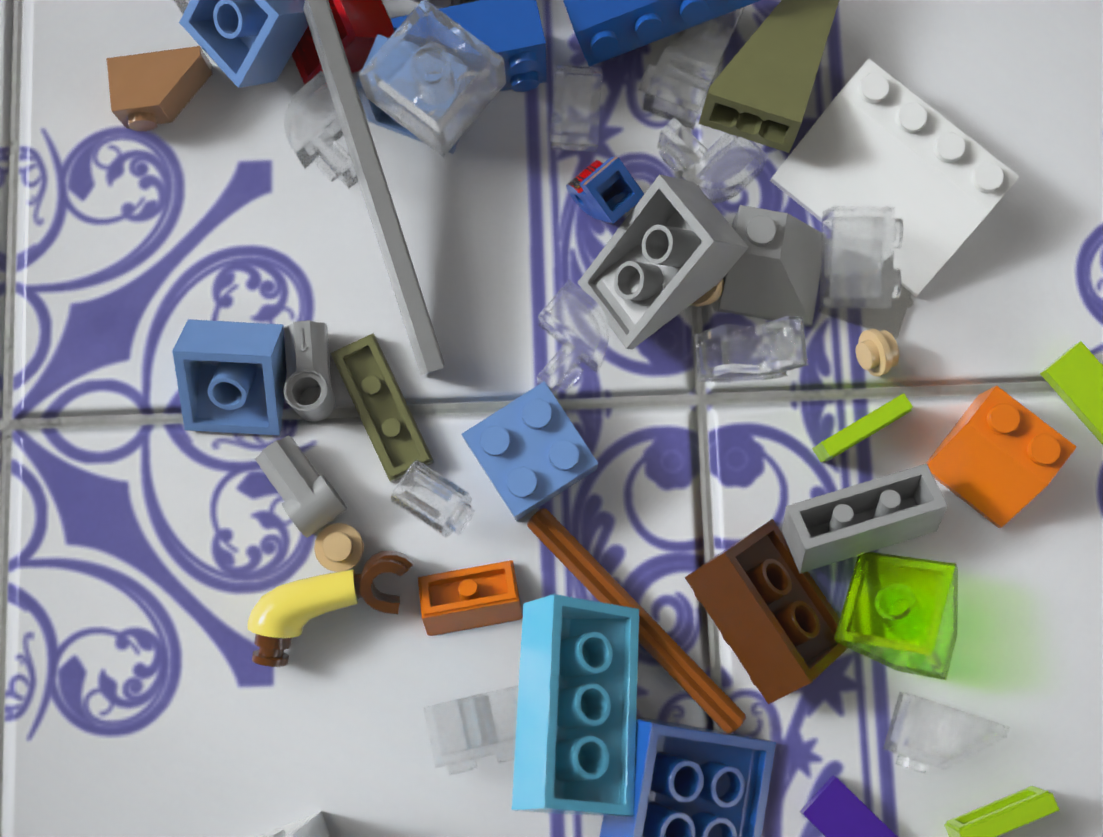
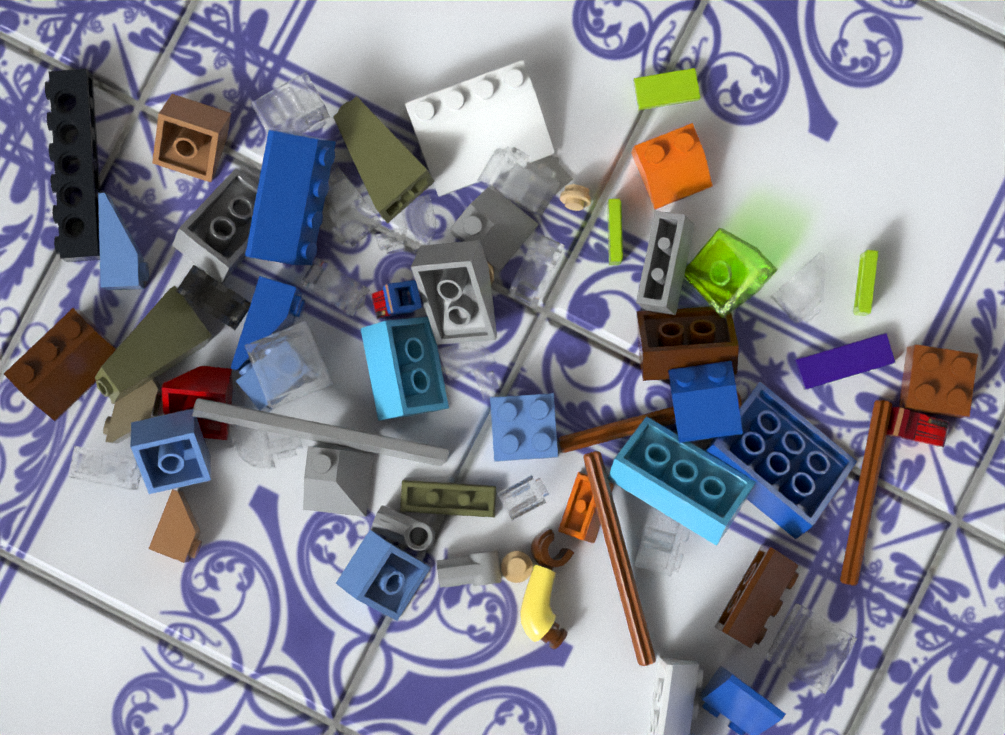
camera: 65 degrees left, 5 degrees up
(327, 250) = (337, 481): none -> light grey slope
(422, 681) = (619, 558): none -> dark orange axle
(521, 254) = (404, 368): none -> medium azure slope
(705, 680) = (705, 401): none -> blue slope

